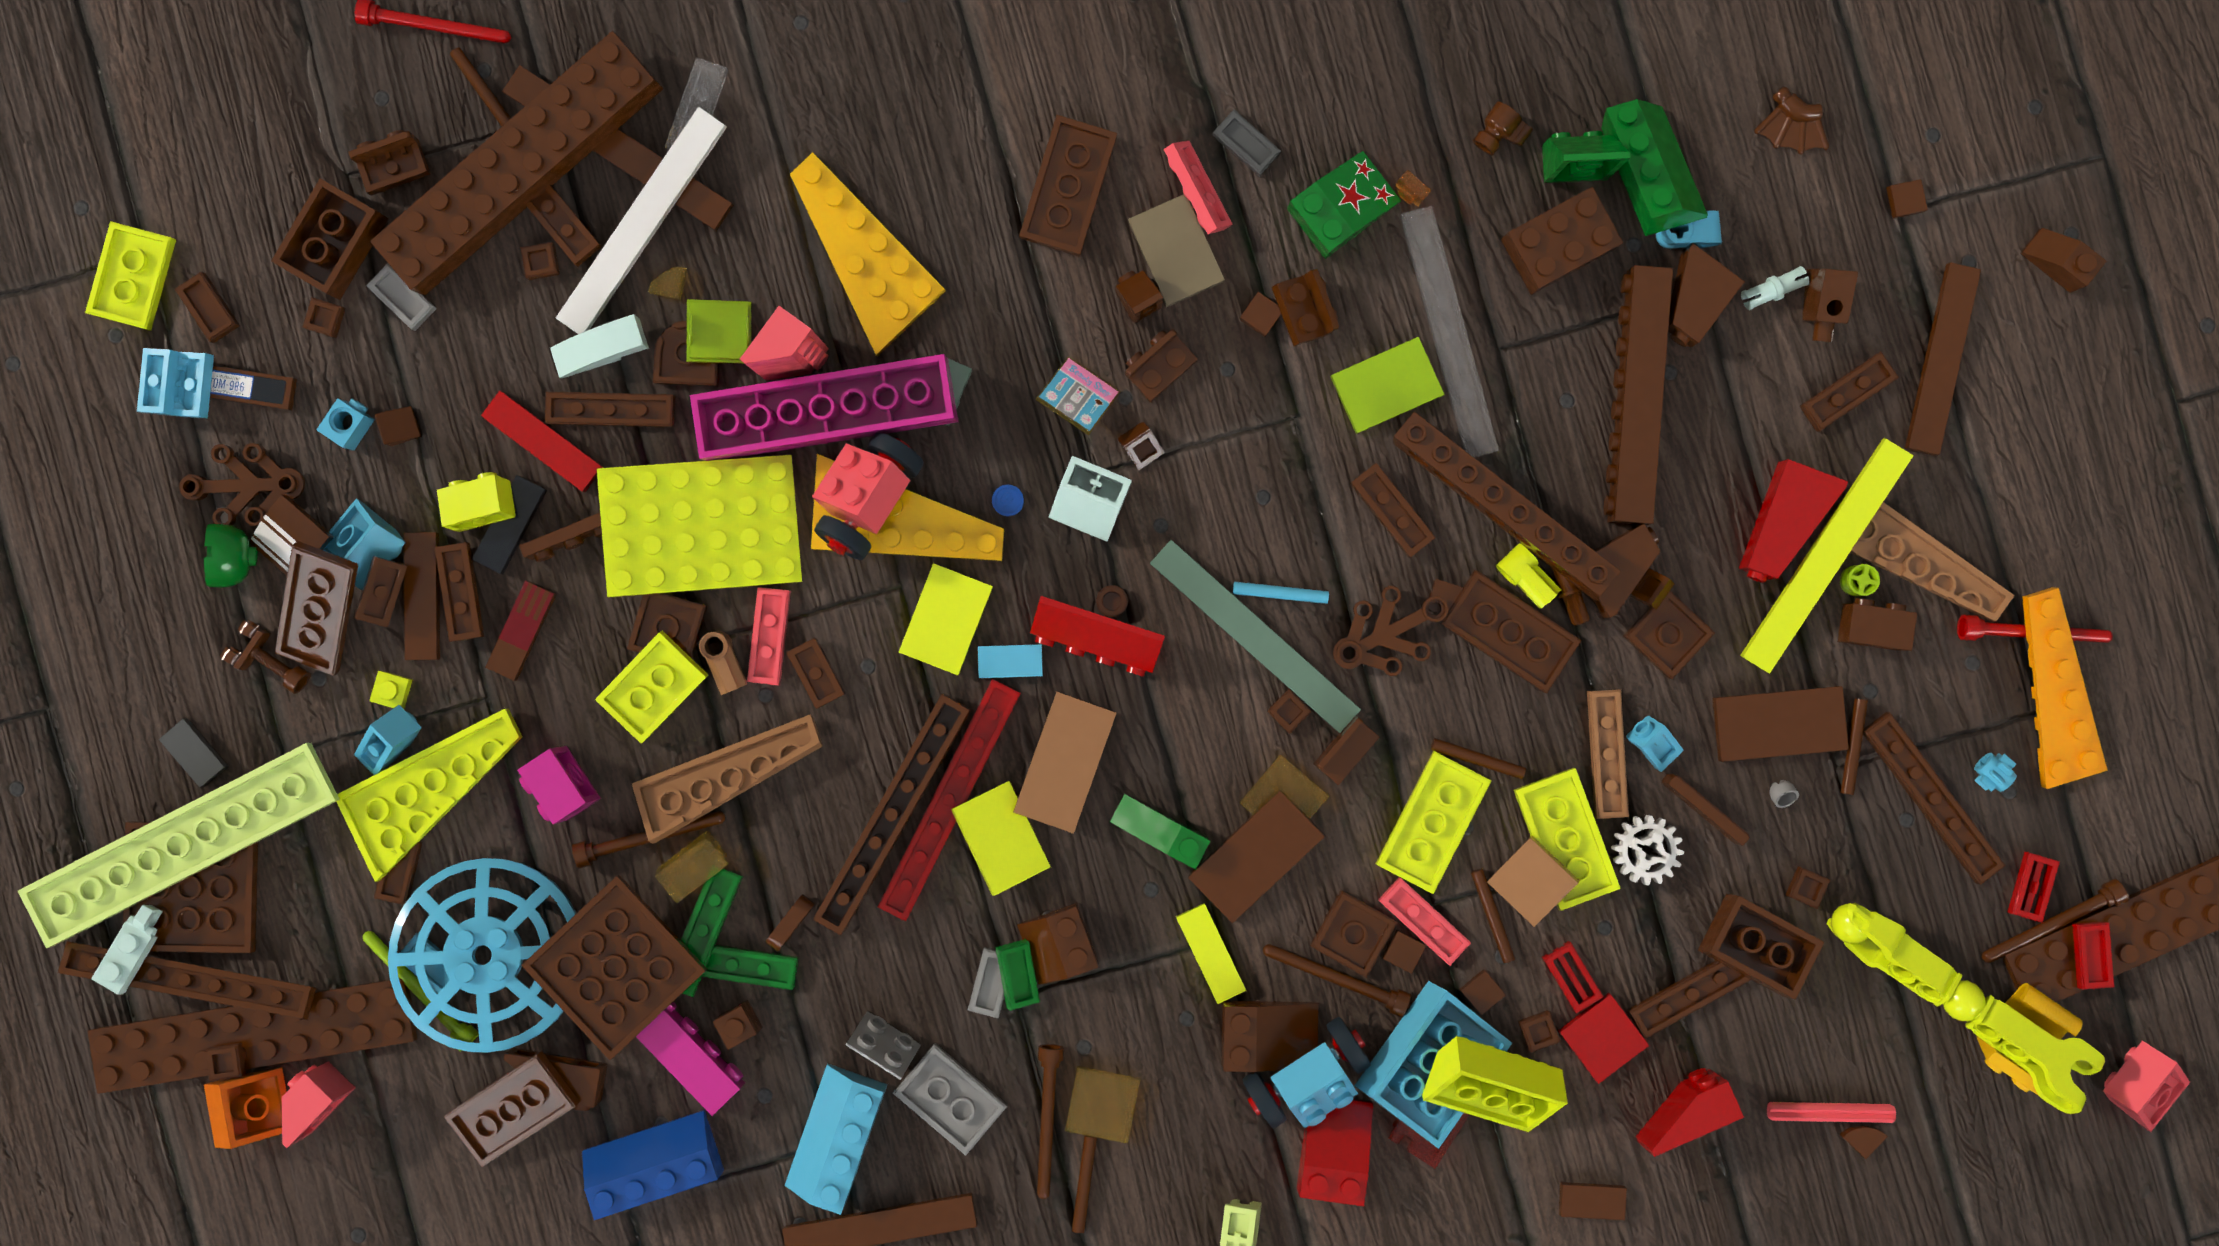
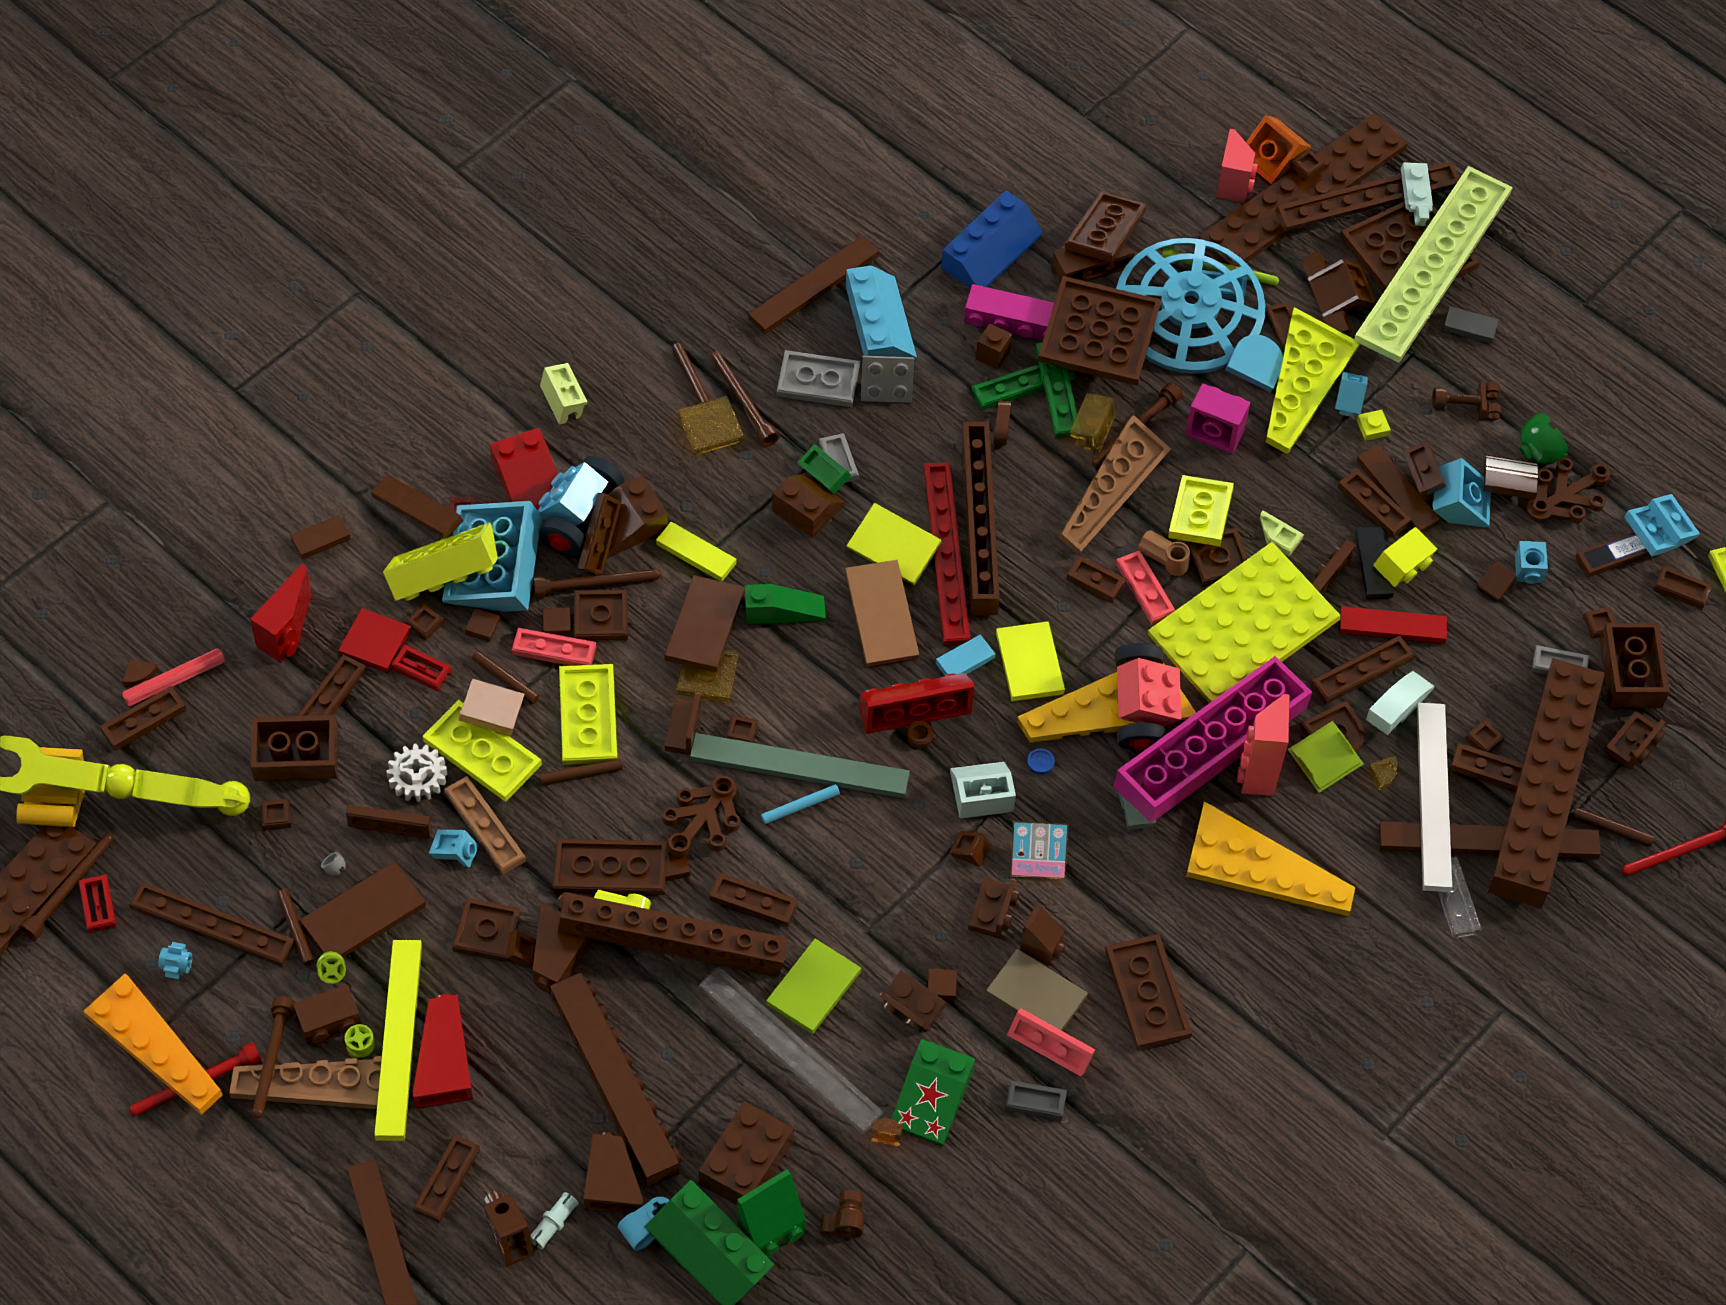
camera: 145 degrees right, 30 degrees down
(308, 880) = (1338, 289): none -> reddish brown plate
(316, 608) = (1458, 437): tile -> none
(462, 839) = (1256, 361): none -> medium azure tile
(520, 630) = (1316, 503): tile -> none
(585, 617) = (1280, 534): none -> yellowish green tile
(1309, 1023) = (599, 534): none -> reddish brown tile
(1478, 1175) = (416, 506): none -> reddish brown tile
(1849, 674) = (334, 972): none -> lime wheel
(1888, 1077) = (143, 718): none -> reddish brown plate
(1919, 655) = (281, 1010): none -> reddish brown piece
(2093, 955) = (29, 871): red tile -> none

